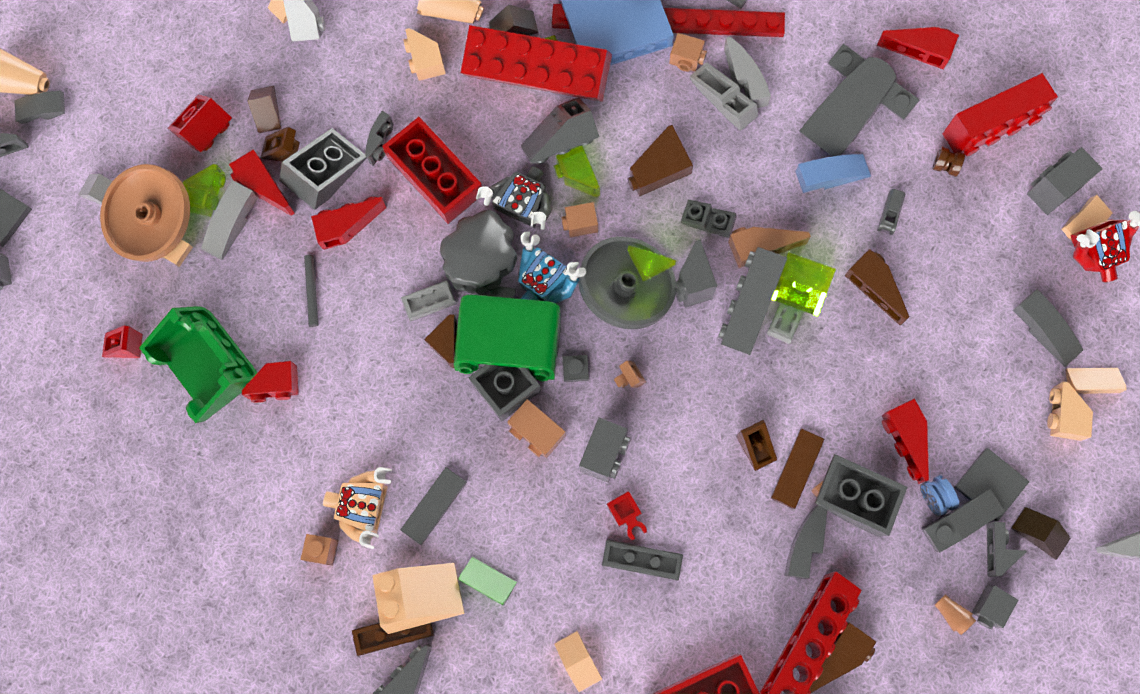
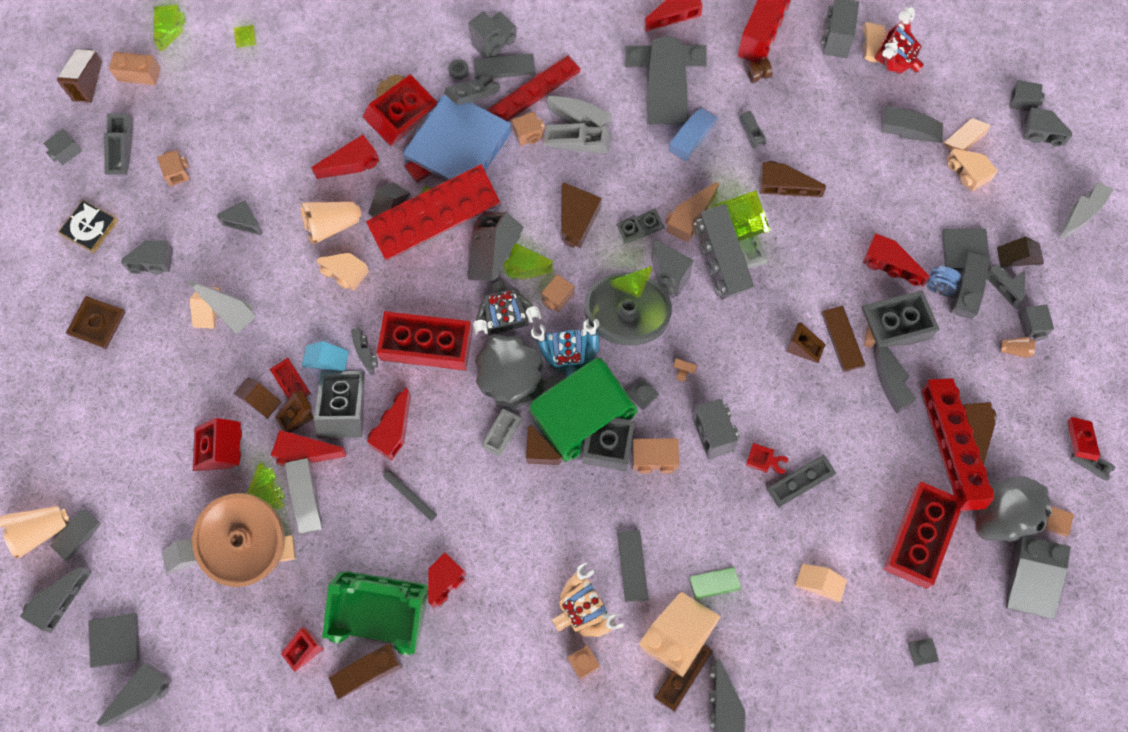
camera: 45 degrees left, 5 degrees down
(152, 404) = (365, 671): none -> reddish brown slope
(302, 114) = (289, 378): none -> red plate
(346, 119) = (325, 357): none -> medium azure slope

